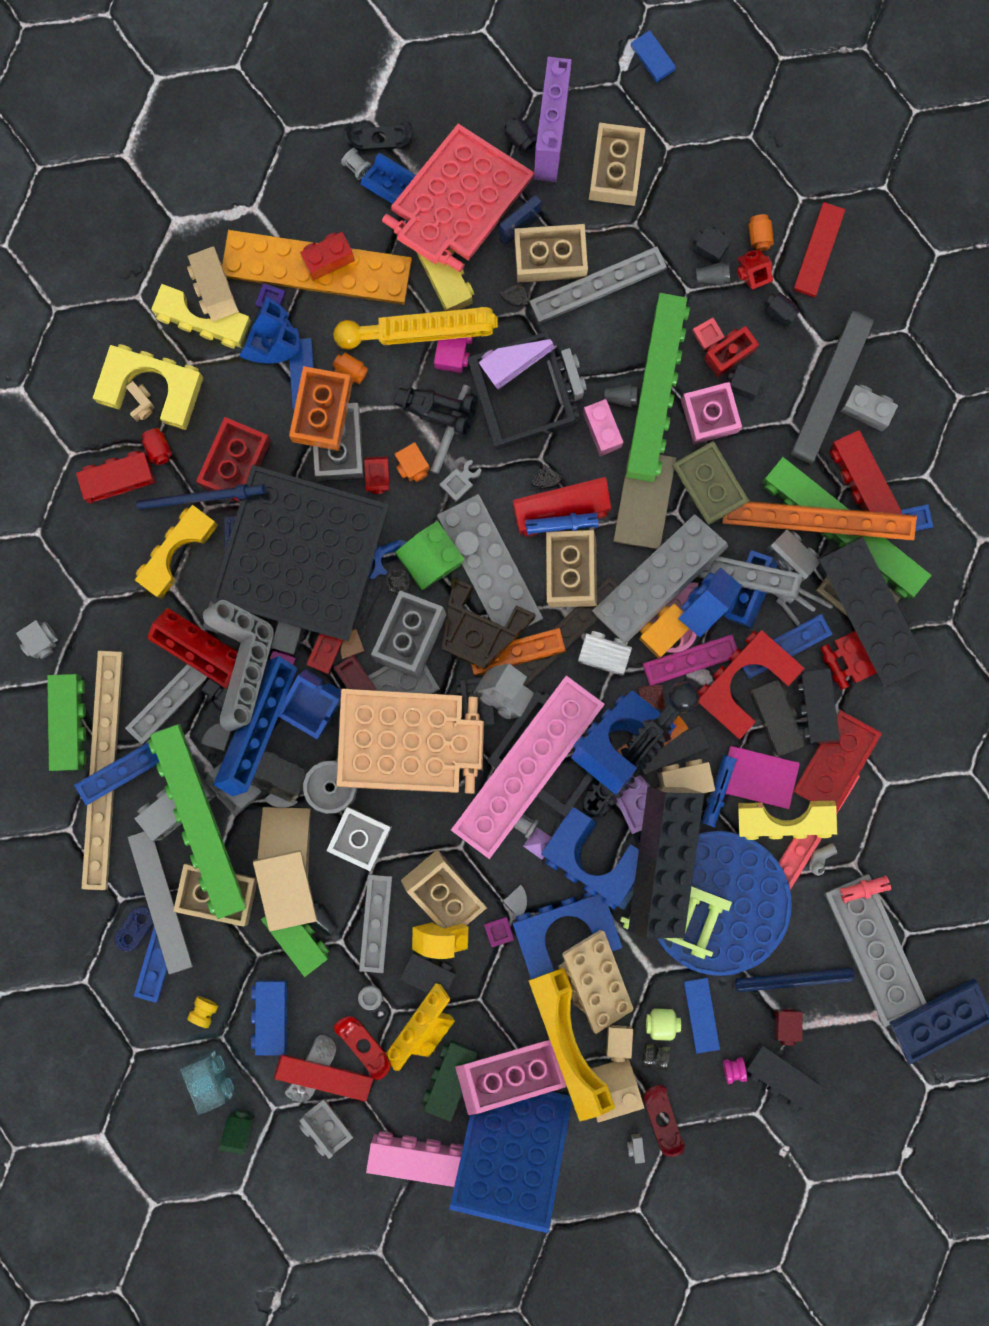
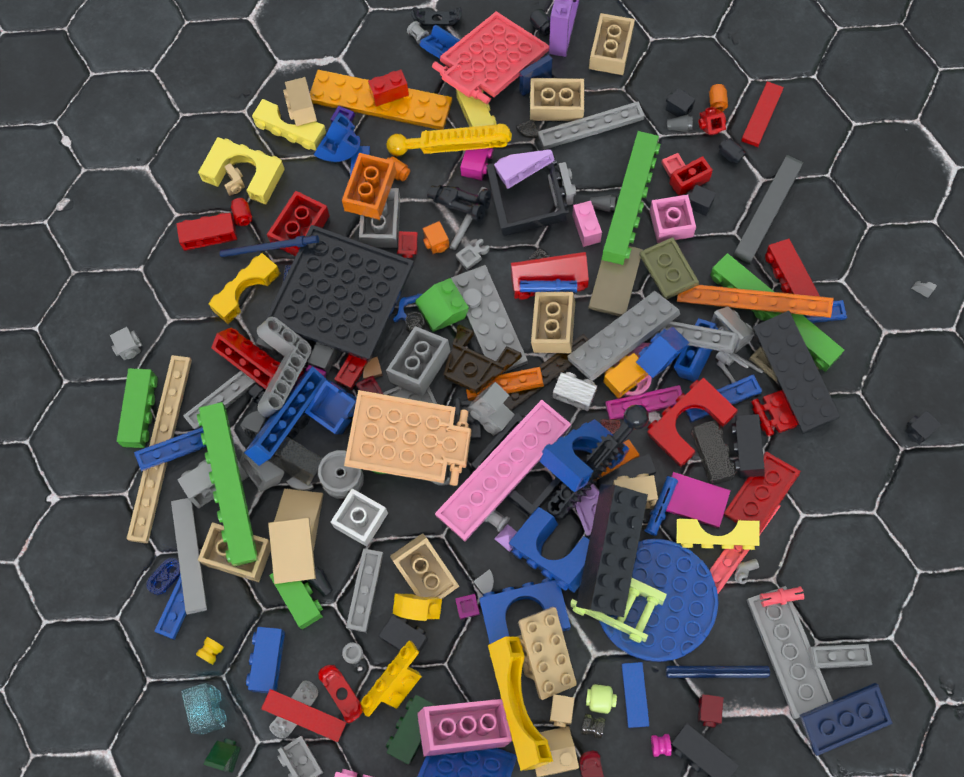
camera: 10 degrees right, 15 degrees down
(869, 407) = (797, 224): light grey brick -> none
(933, 950) = (840, 656): none -> light grey tile

